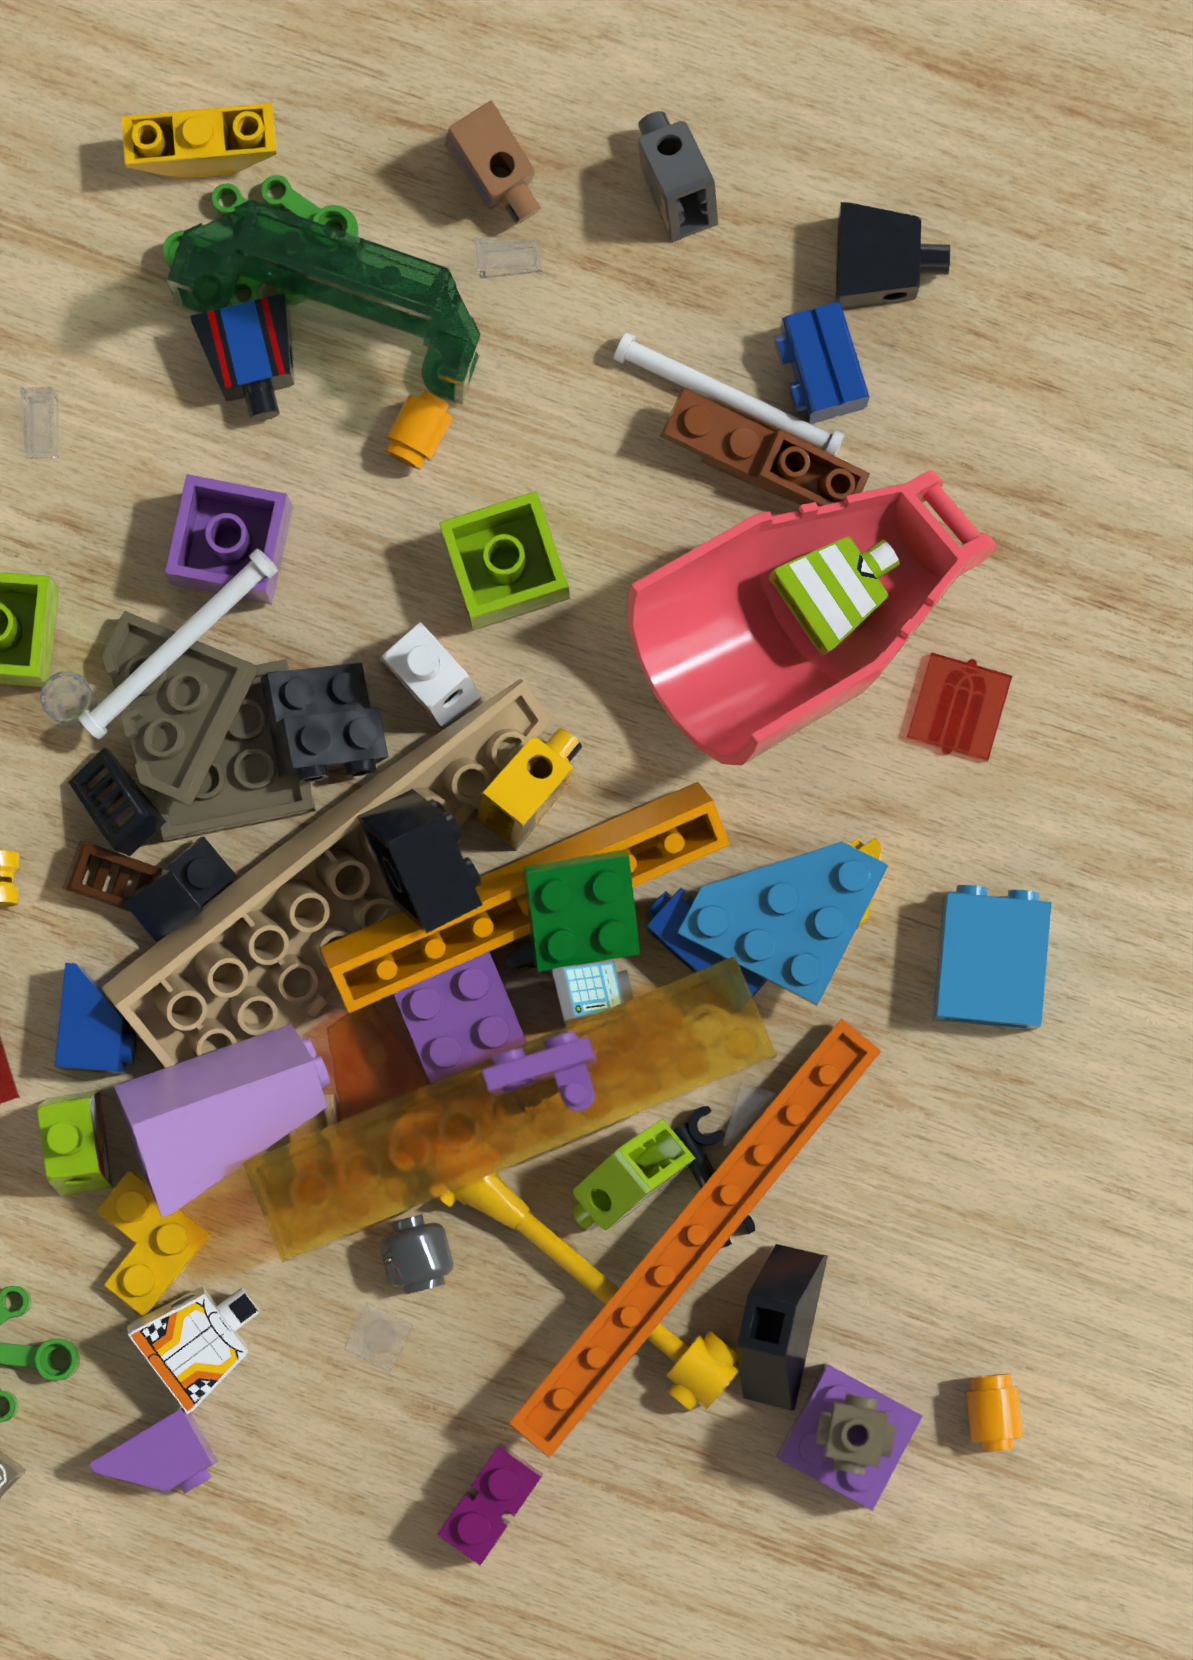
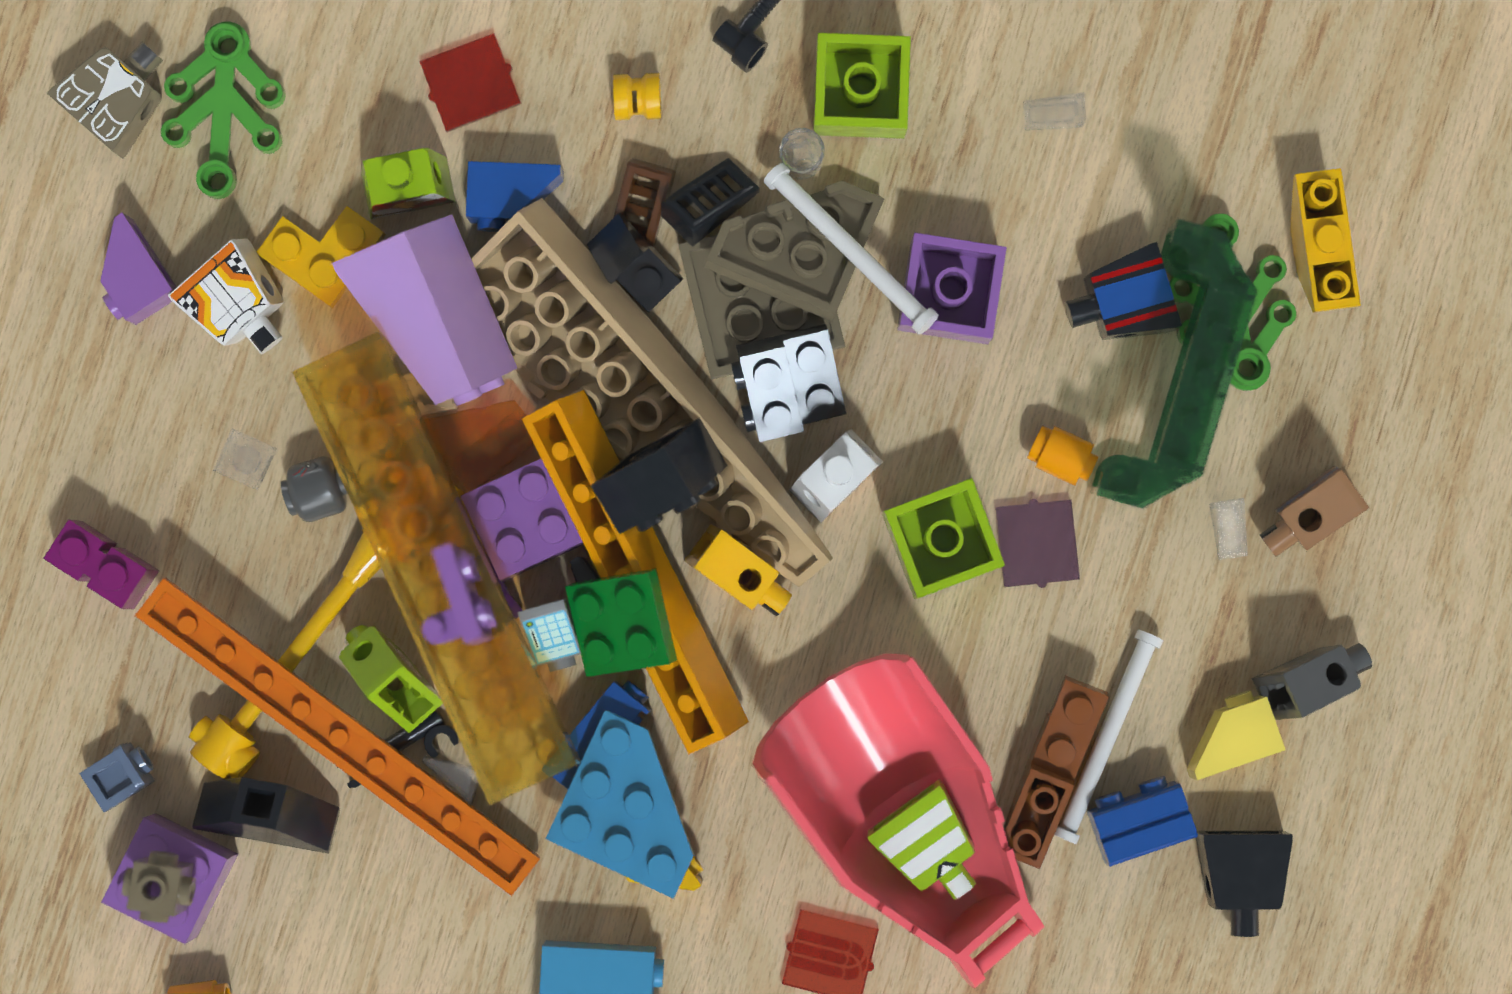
camera: 80 degrees right, 5 degrees up
(514, 461) = (1037, 543): none -> clear purple piece
(731, 1493) = (118, 775): none -> sand blue bracket
(733, 258) = (1236, 736): none -> light yellow slope

